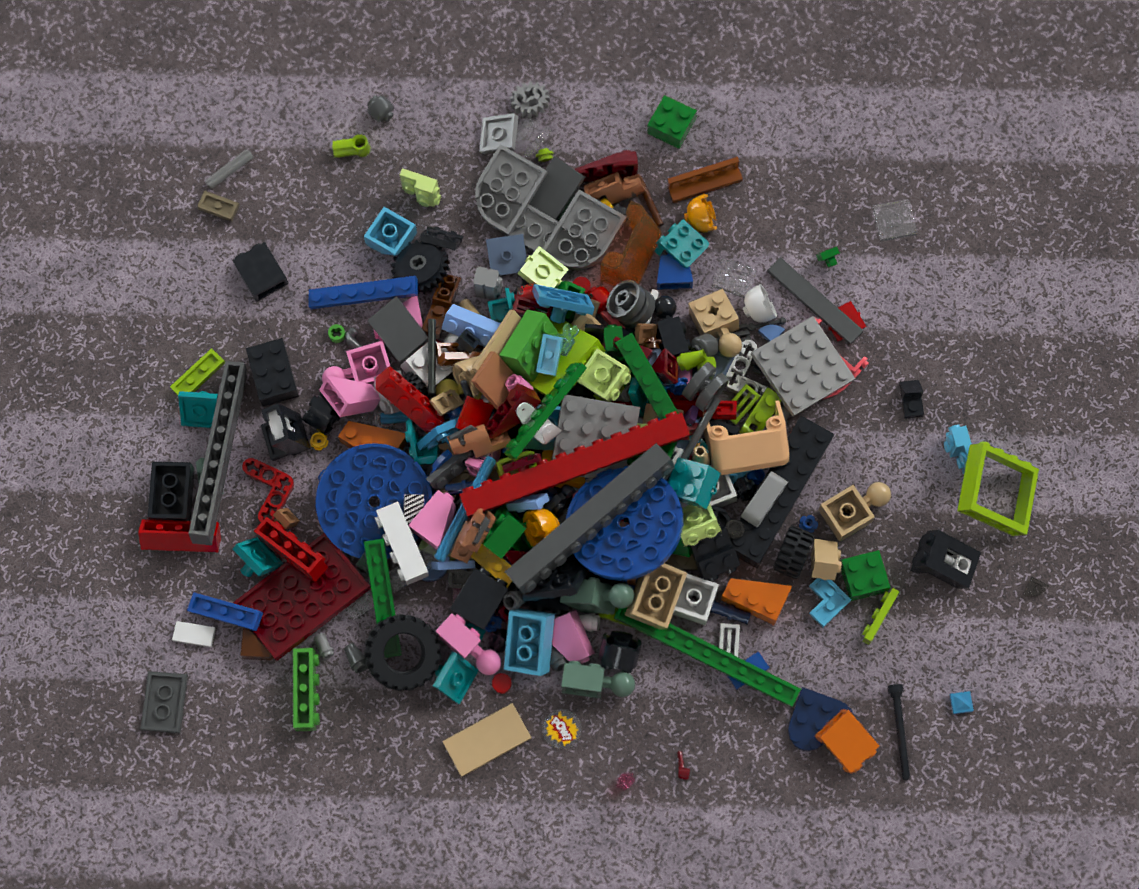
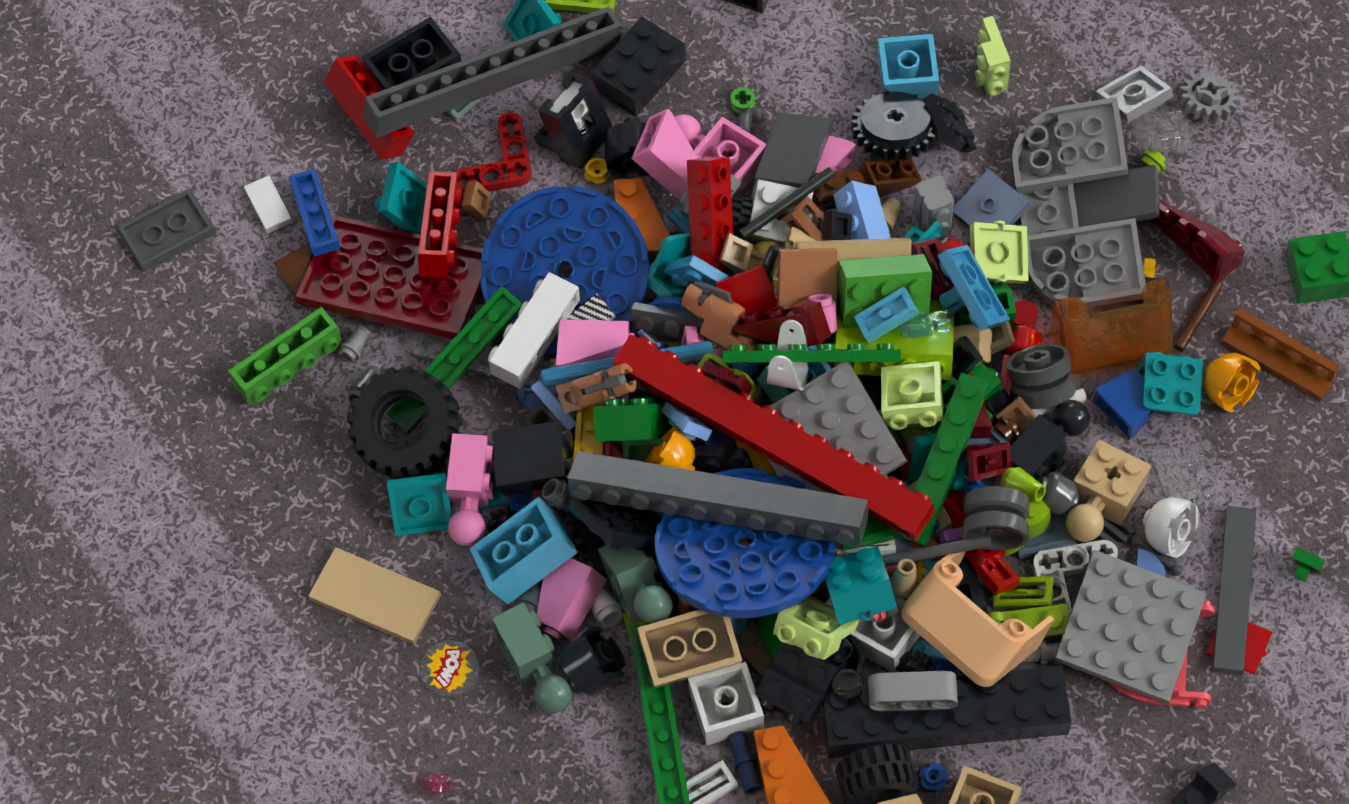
camera: 55 degrees right, 10 degrees down
(363, 292) = (812, 88): blue plate -> none
(501, 683) = (456, 564): red tile -> none
(616, 188) = (1179, 264): nougat plate -> none

